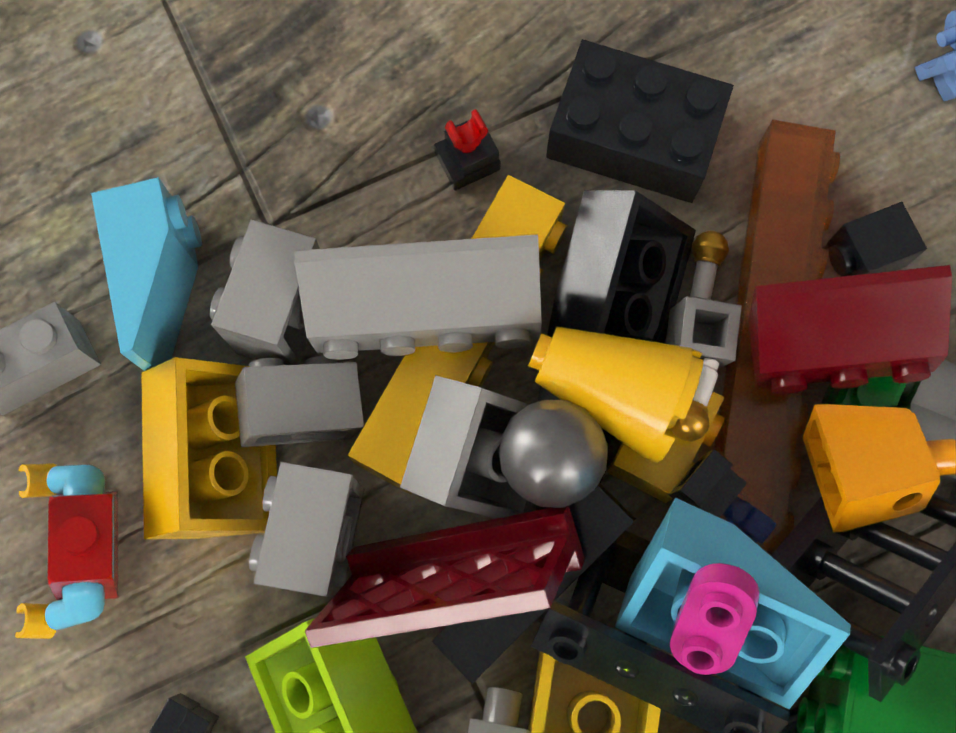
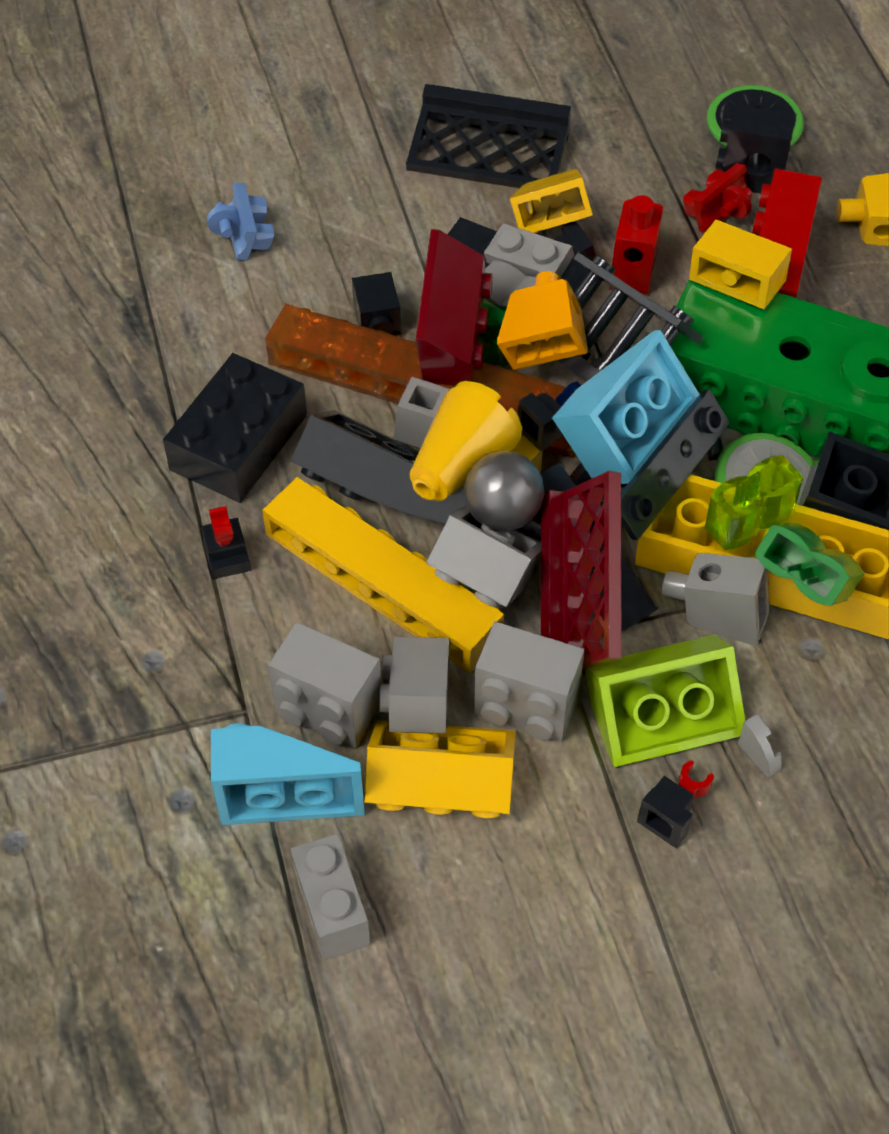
camera: 80 degrees left, 20 degrees down
(79, 546) = (504, 855): torso -> none
(420, 295) = (364, 557): light grey slope -> none
(709, 252) = (355, 407): piece -> none
(714, 618) = (639, 404): dark pink plate -> none

